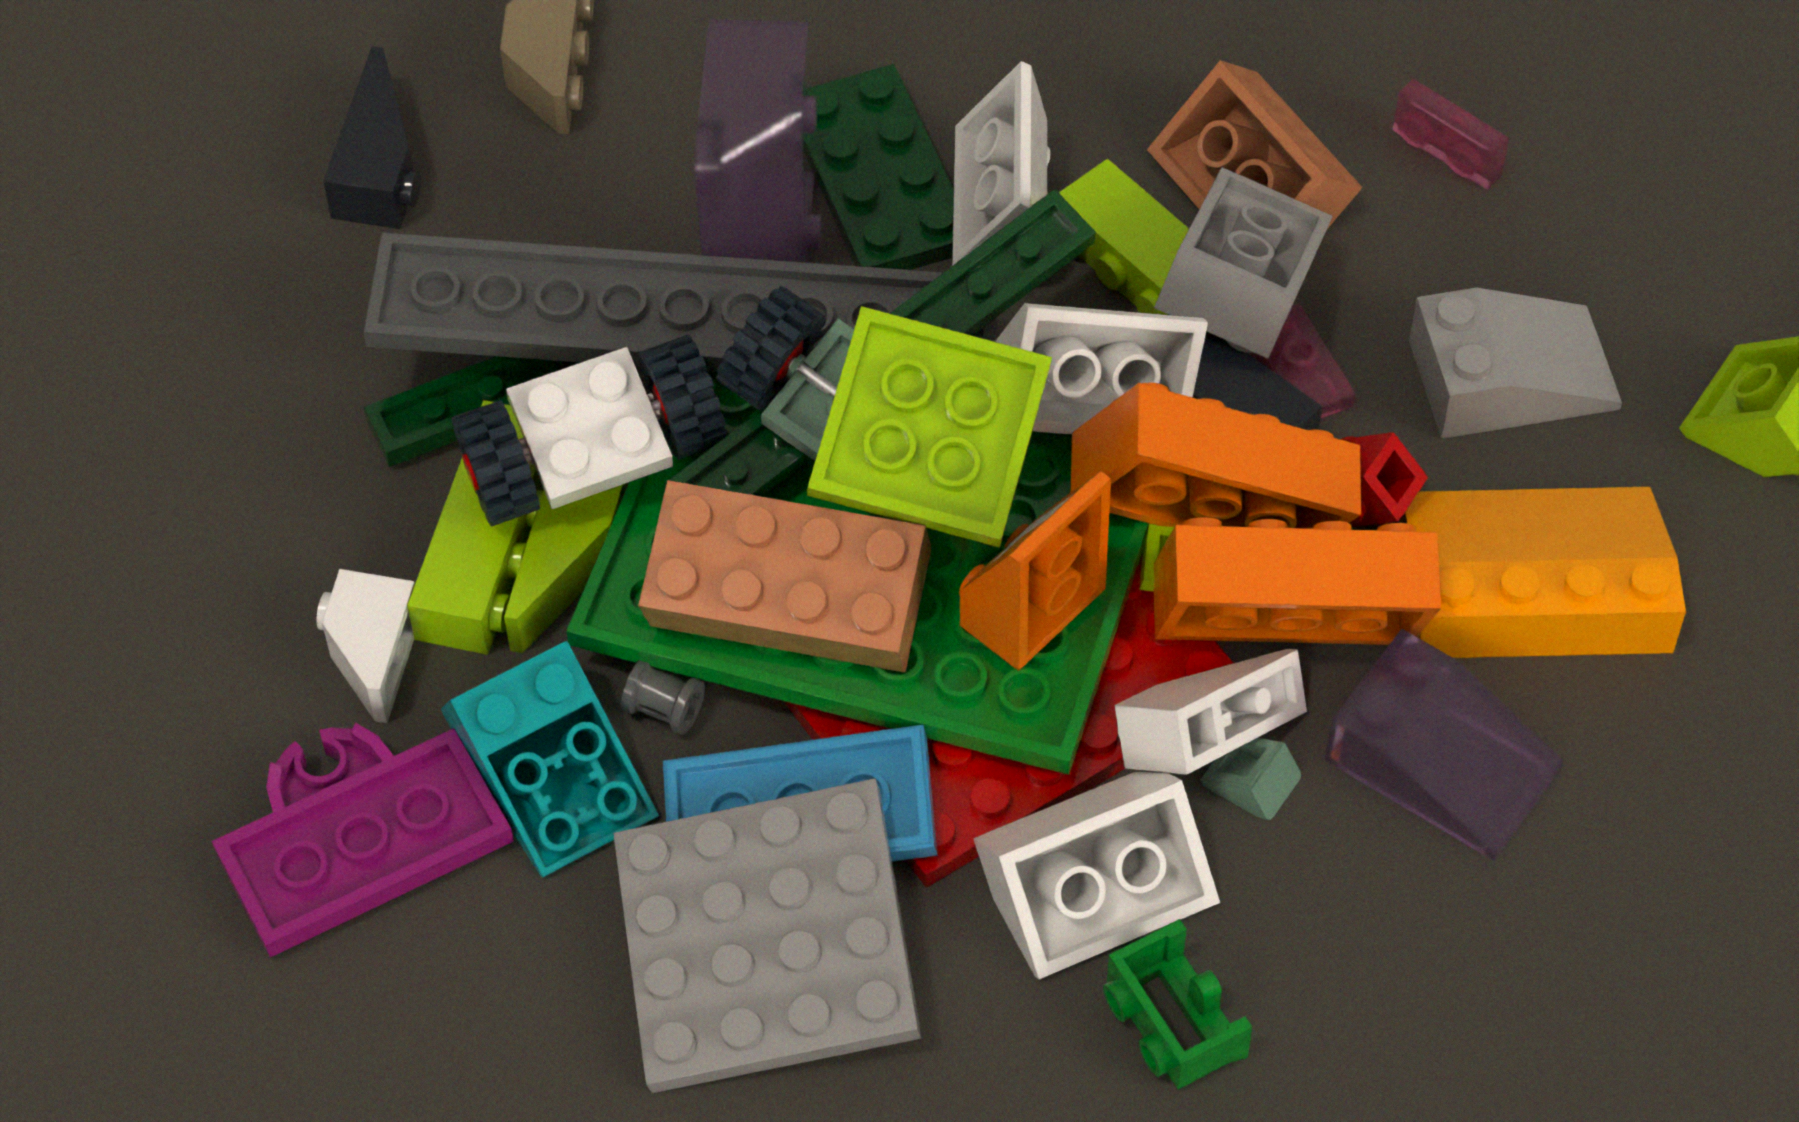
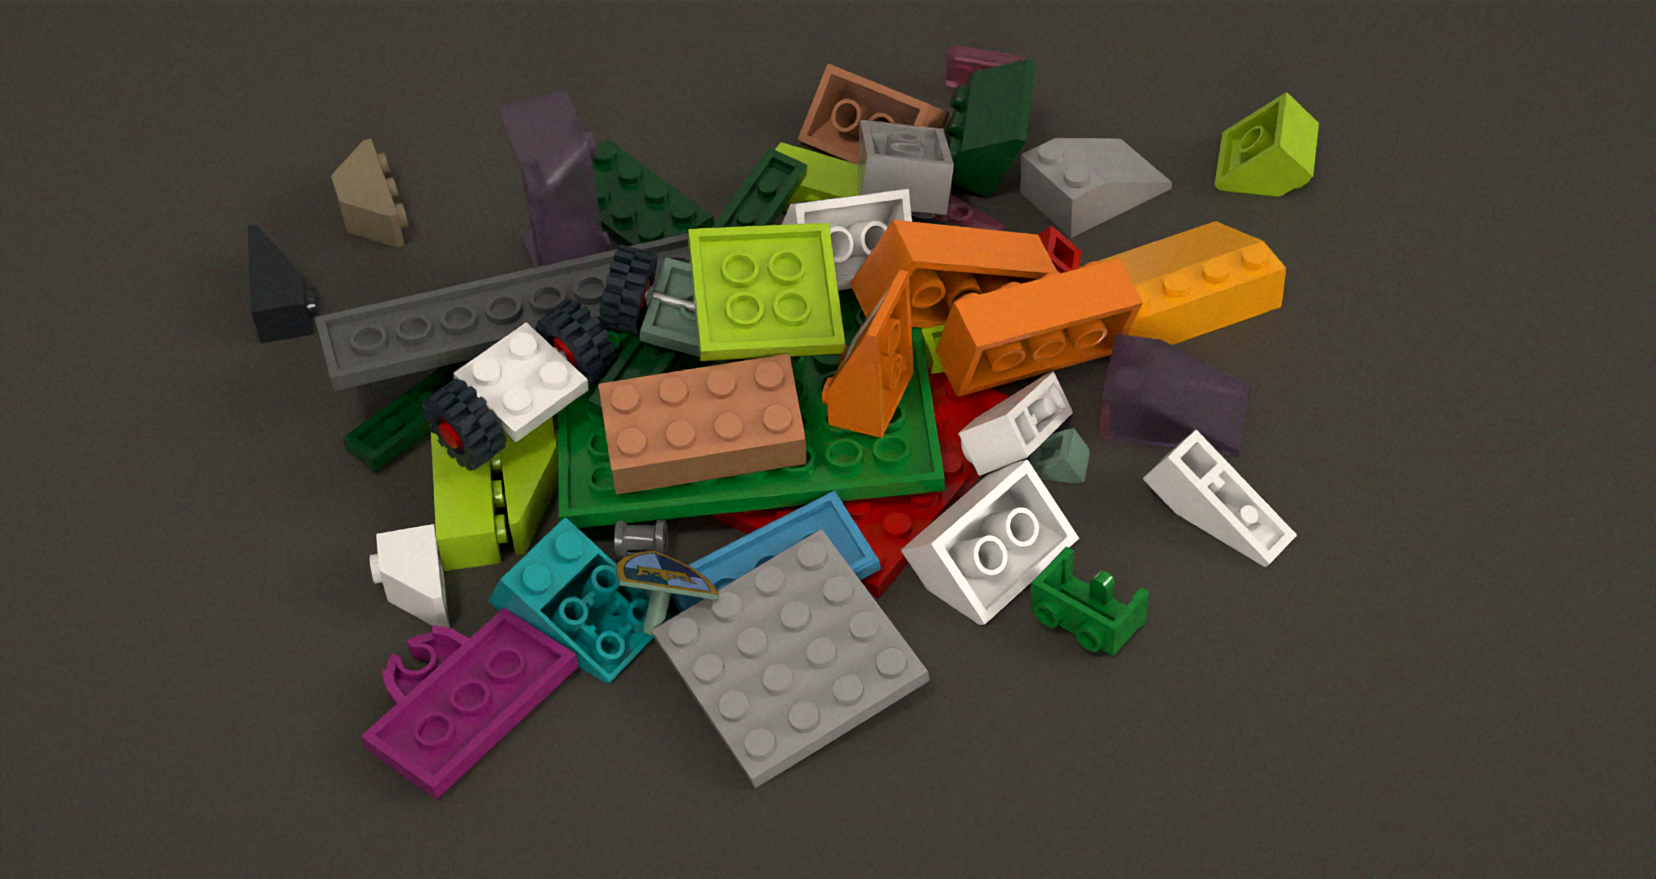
camera: 20 degrees left, 10 degrees down
(651, 767) = (659, 578): none -> shield
(999, 160) = (710, 160): white slope -> none
(1397, 230) = (989, 124): none -> dark green slope
(1423, 925) = (1218, 500): none -> white slope

